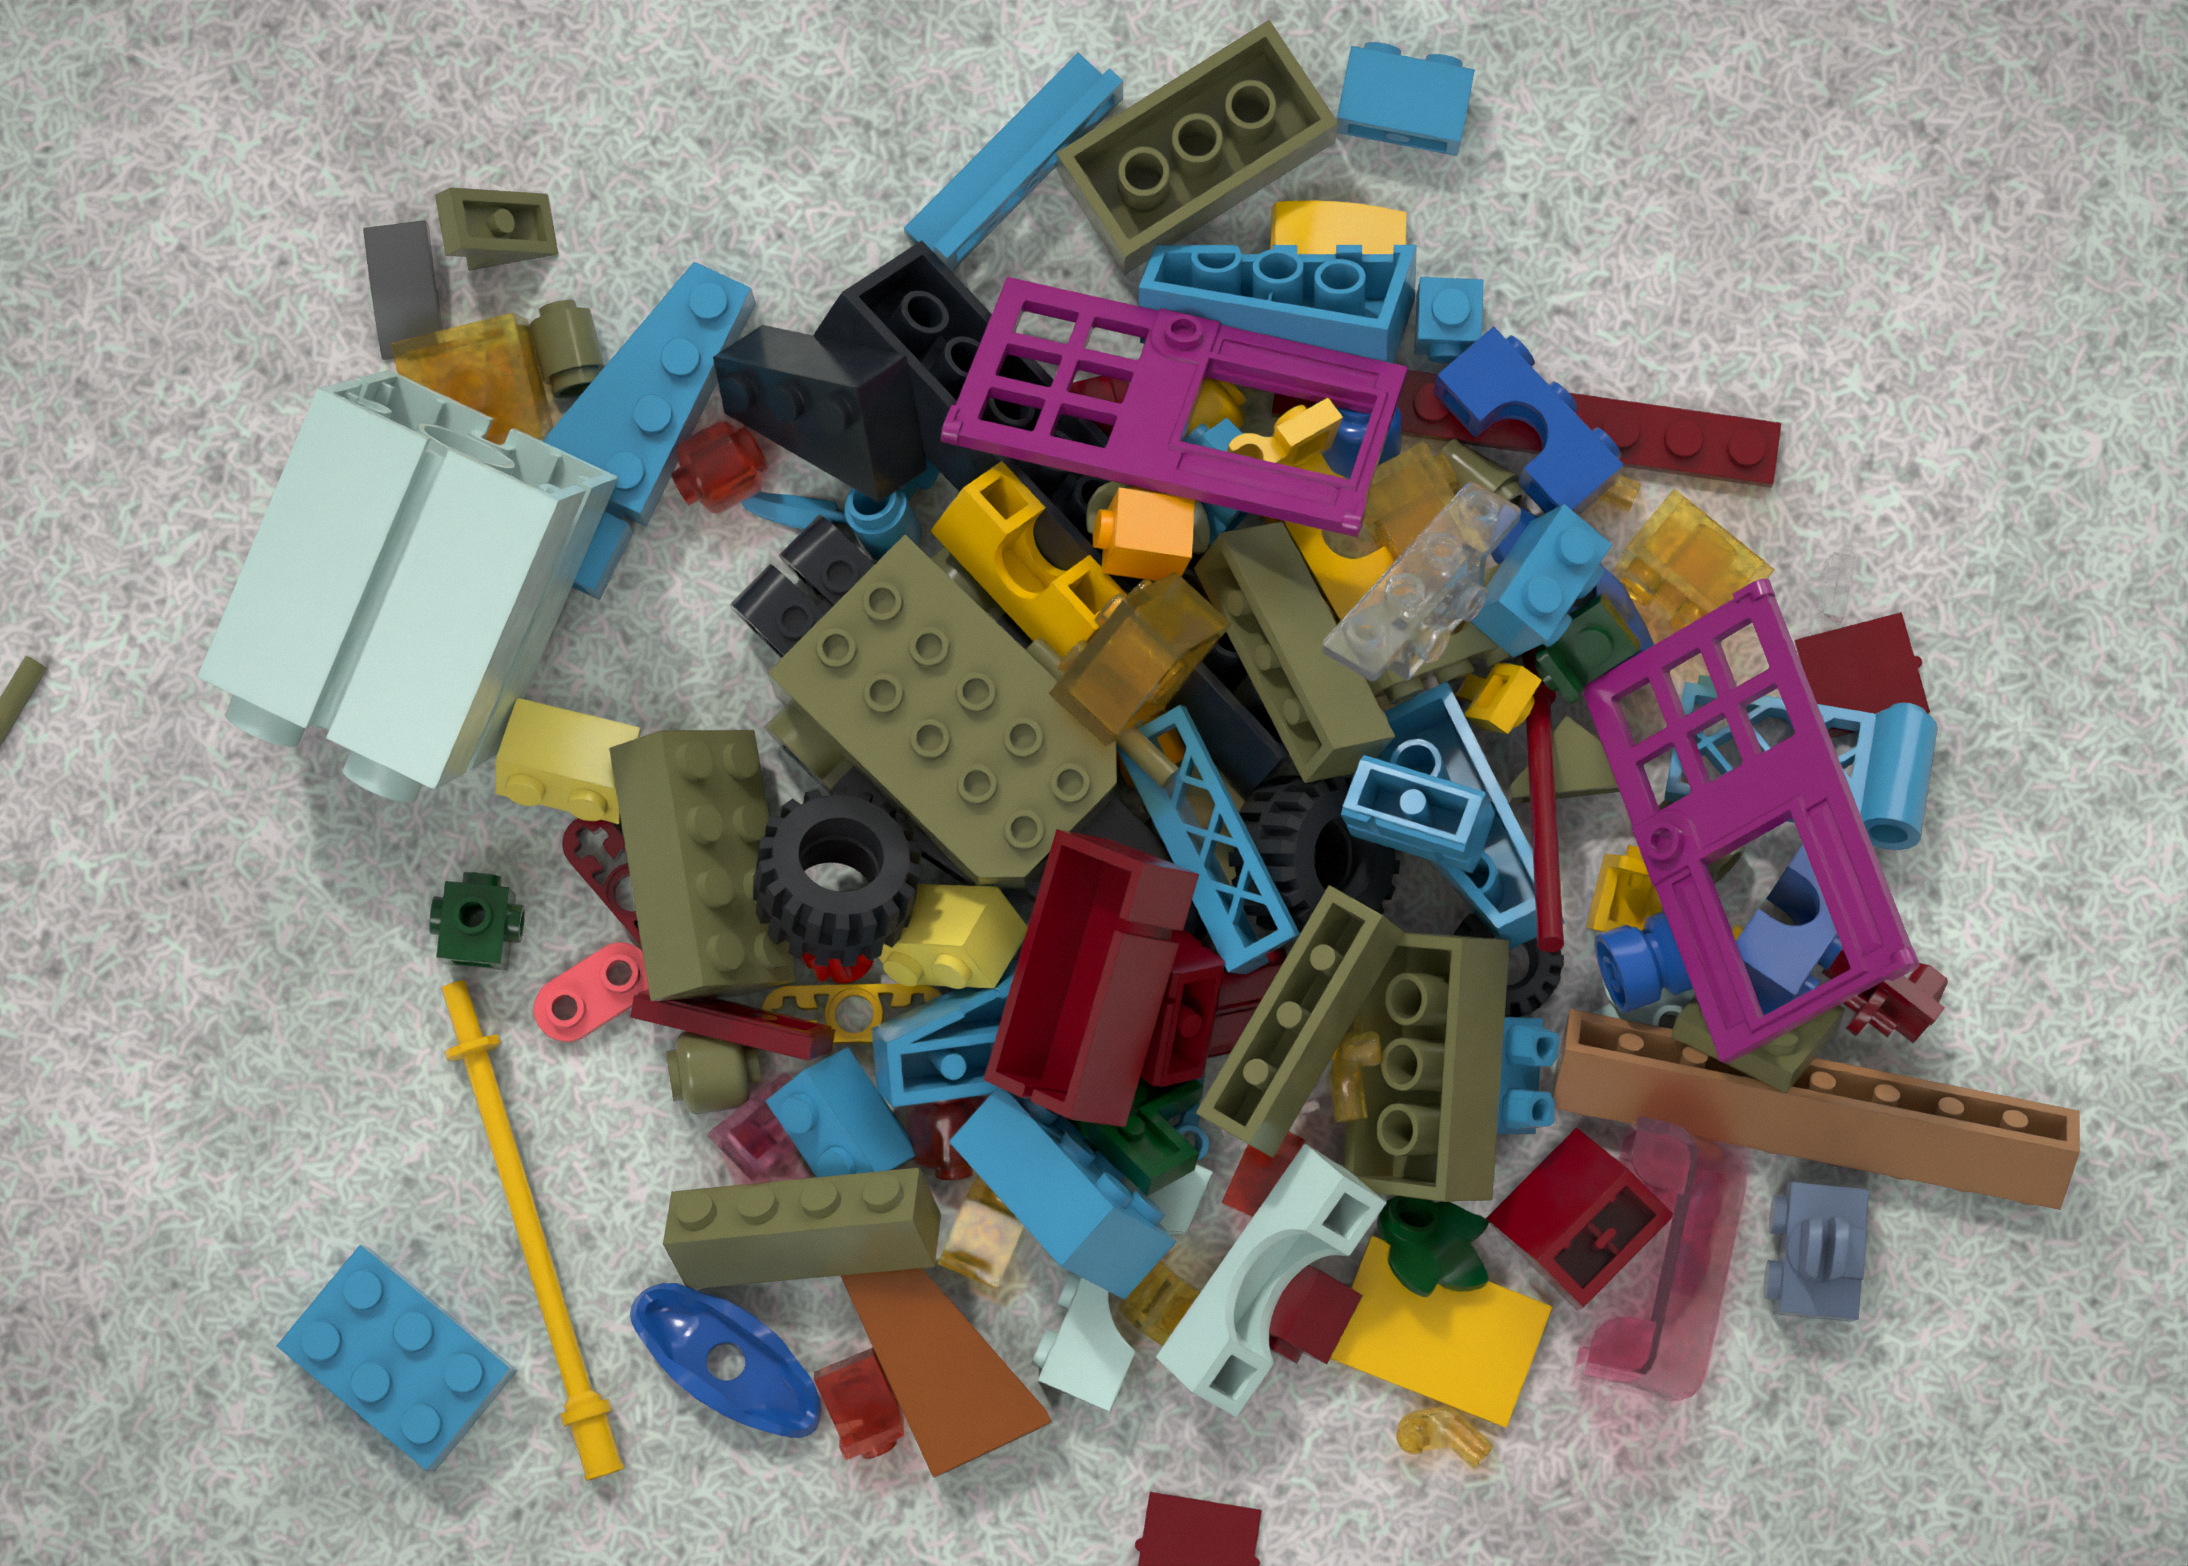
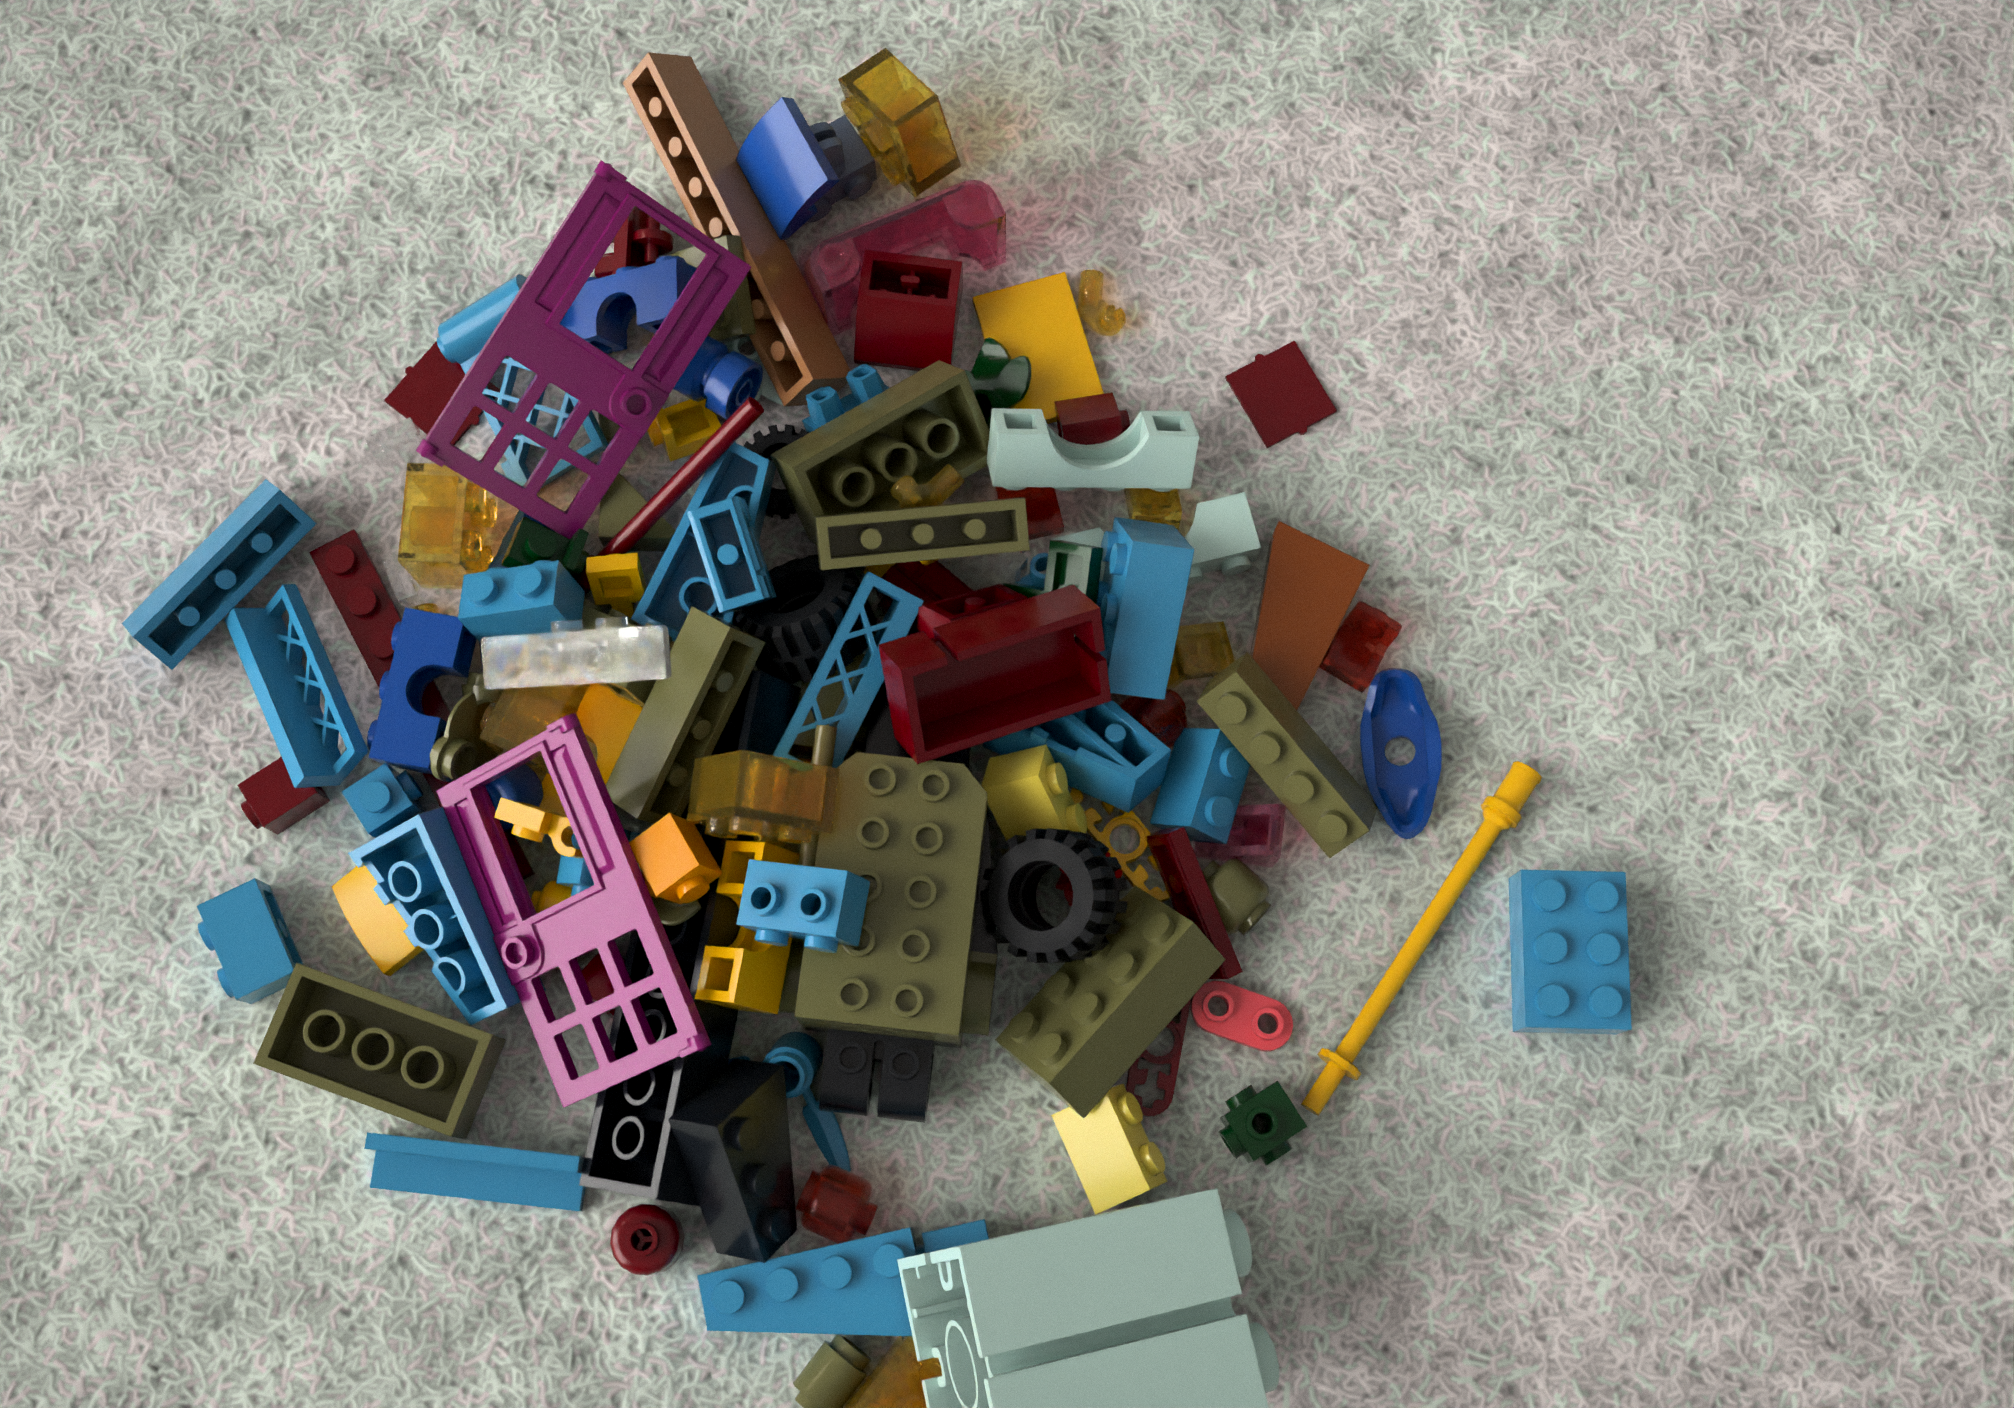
camera: 130 degrees left, 5 degrees down
(833, 249) = (666, 1239): none -> dark red head
(998, 614) = (803, 904): none -> dark azure brick
(1433, 418) = (461, 747): none -> olive plate
(1535, 226) = (275, 801): none -> dark red brick
(1631, 302) = (291, 696): none -> dark azure fence
(1659, 485) = (404, 585): none -> clear tile
(1798, 1360) = (899, 122): none -> clear yellow brick
(1817, 316) = (218, 574): none -> dark azure brick
(1828, 1198) = (786, 167): none -> blue slope

